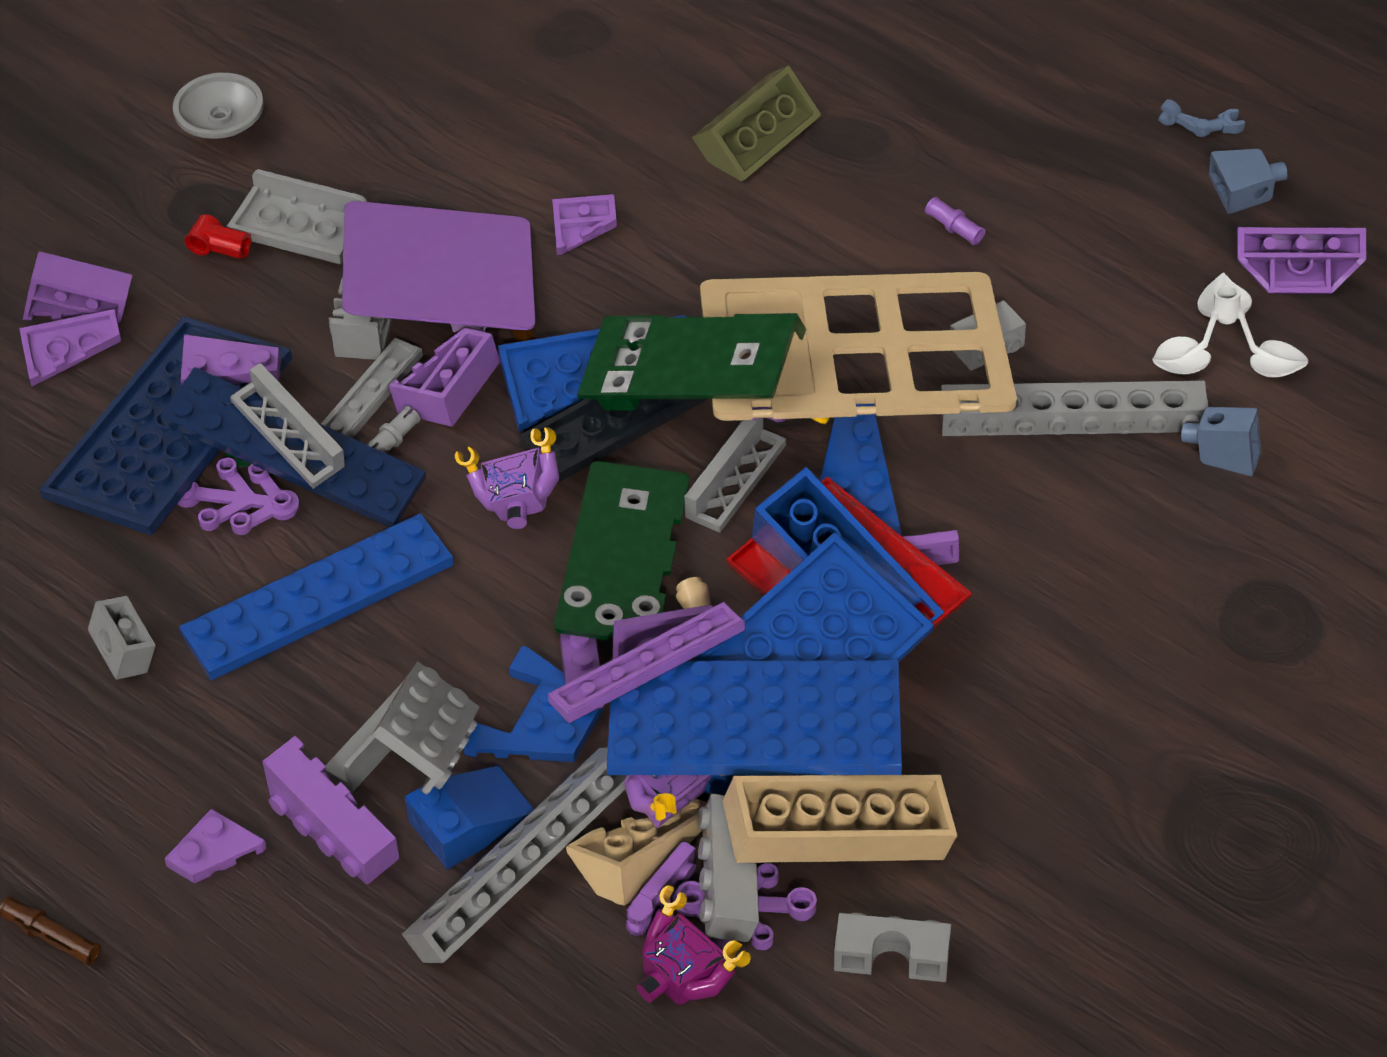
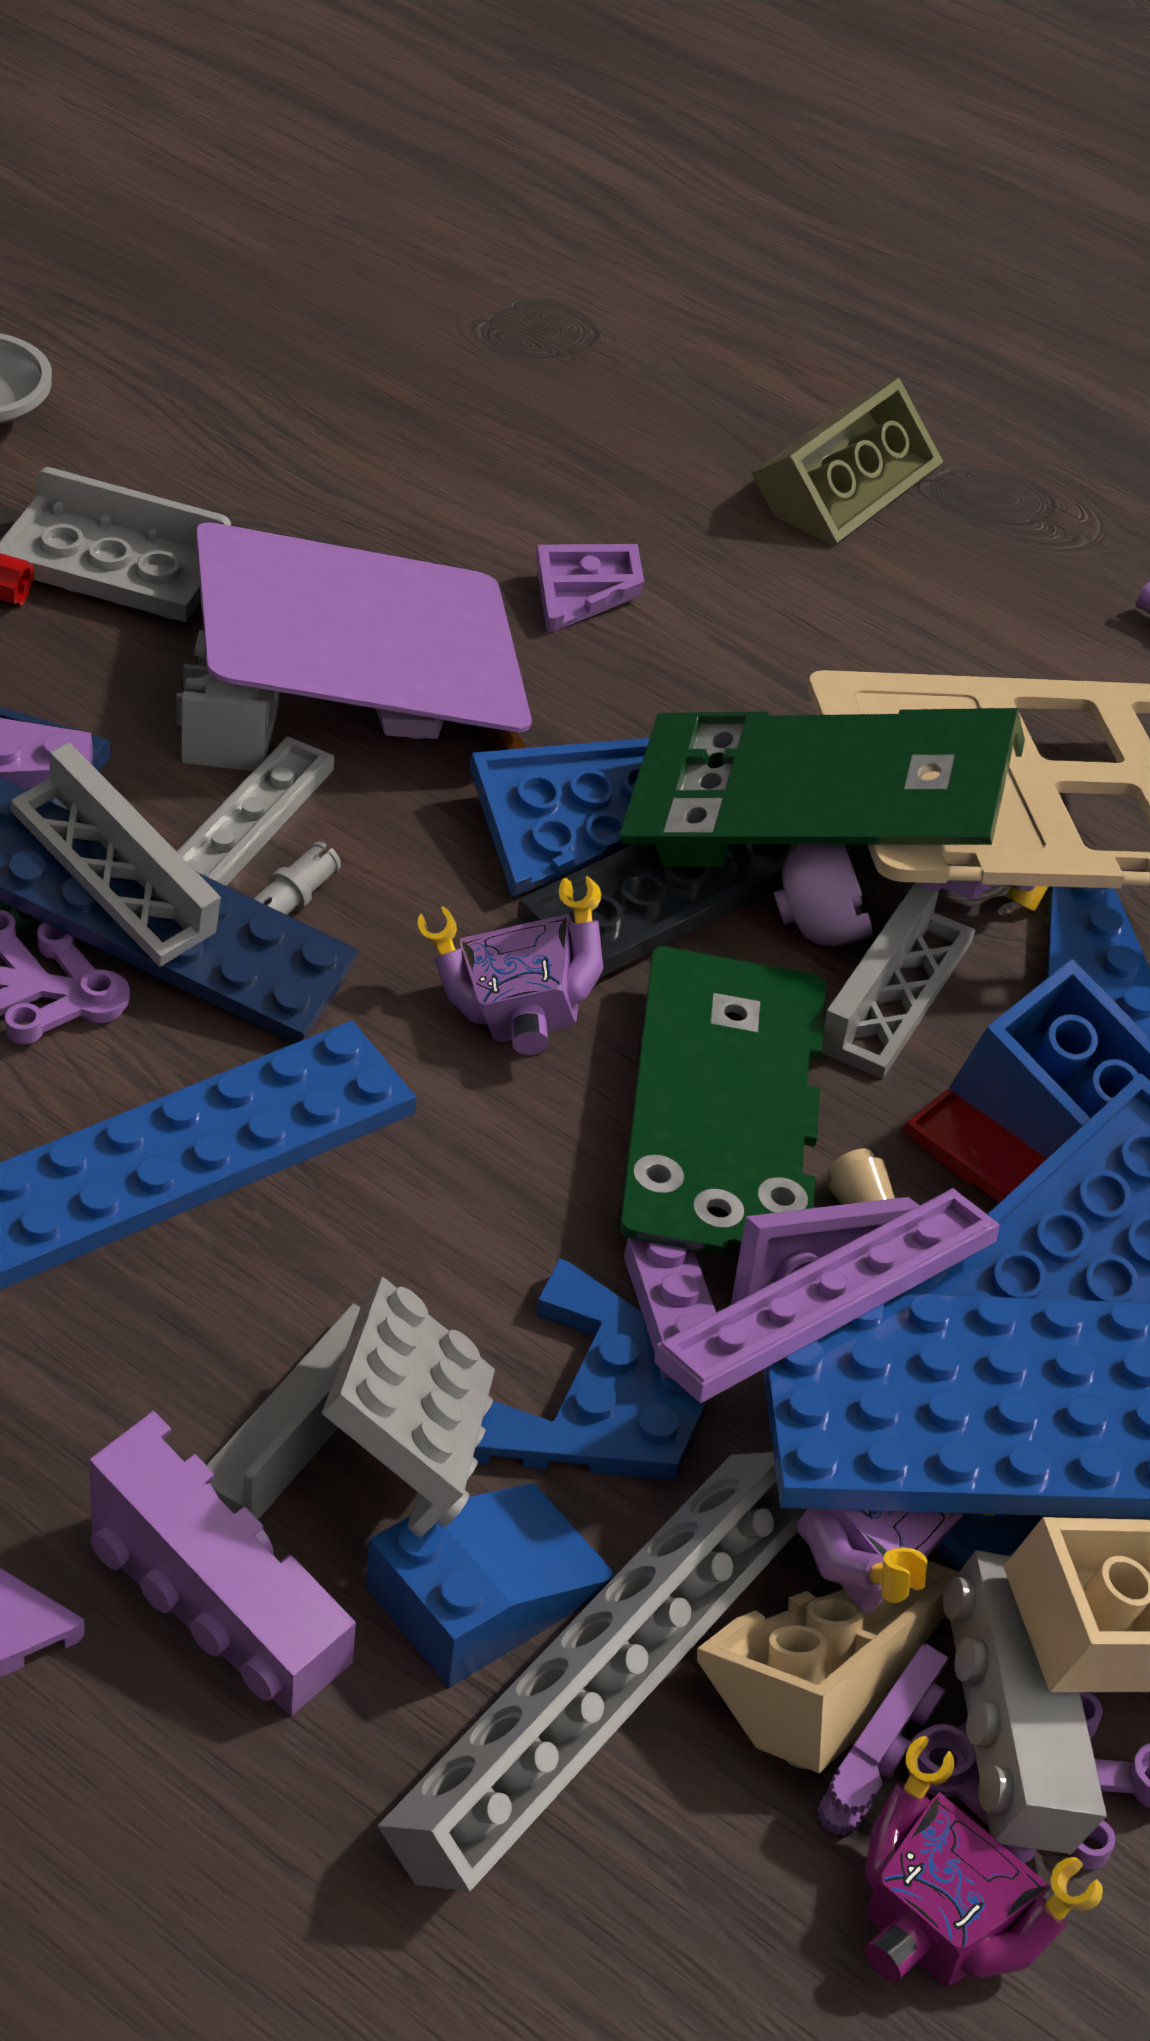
camera: 10 degrees left, 5 degrees down
(448, 380) = (390, 803): medium lavender wedge -> none
(695, 426) = (823, 896): none -> lavender cylinder

